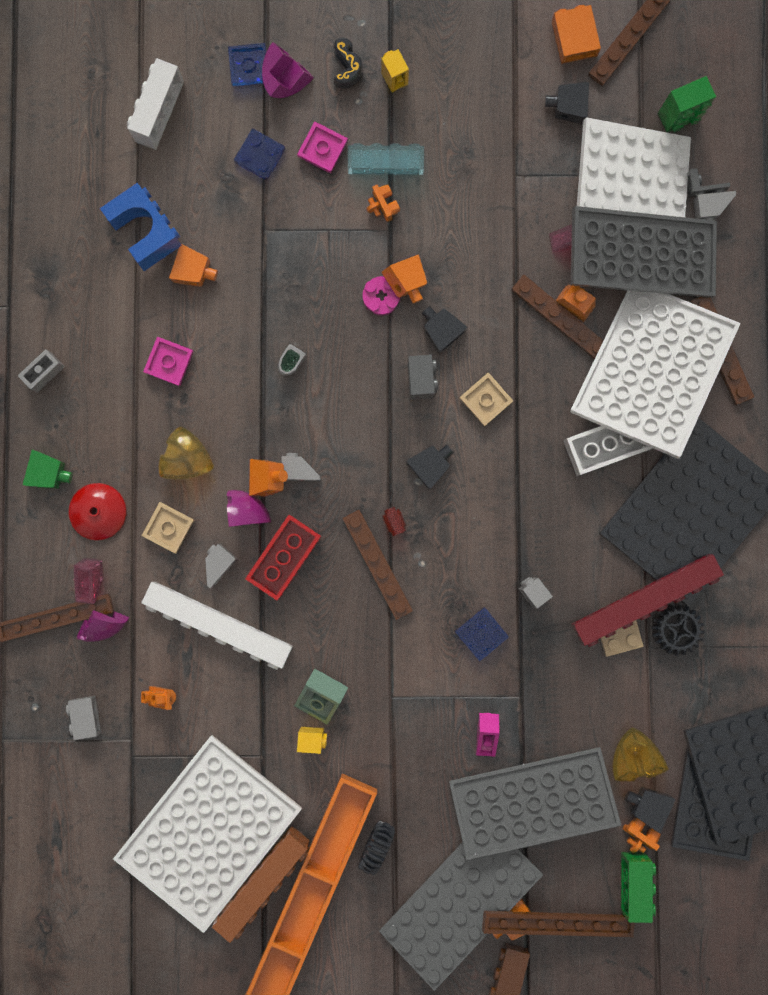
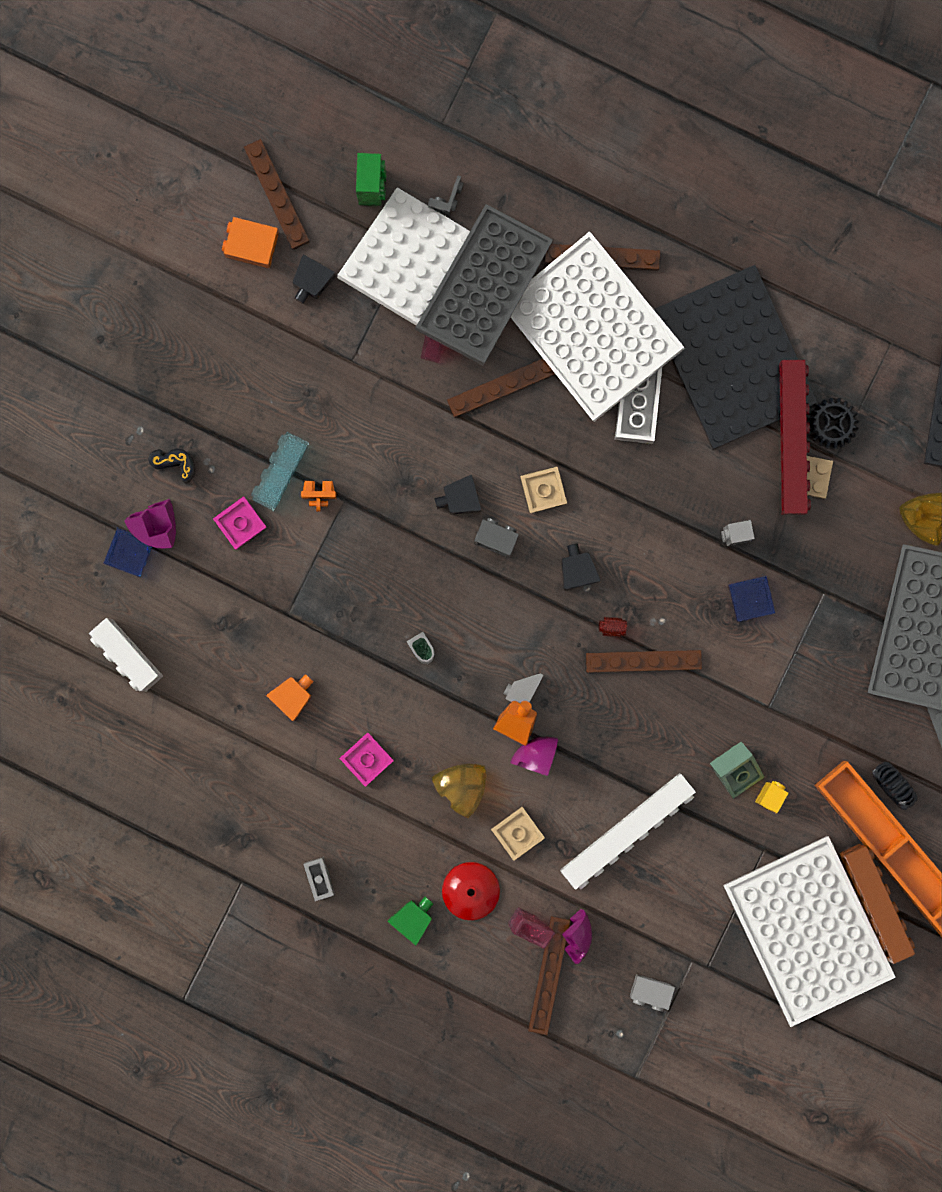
camera: 65 degrees left, 0 degrees up
(134, 204) = (207, 718): blue arch -> none
(159, 697) = (667, 915): orange hips -> none
(218, 563) = (572, 803): light grey slope -> none
(259, 154) = (216, 583): clear blue plate -> none
(283, 557) = (597, 741): red brick -> none
(374, 304) = (411, 531): dark pink plate -> none
(394, 70) = (204, 423): yellow brick -> none
(406, 278) = (399, 506): orange torso -> none
(487, 734) = (843, 638): dark pink slope -> none
(577, 301) = (496, 365): orange torso -> none
(711, 205) = (470, 201): light grey slope -> none

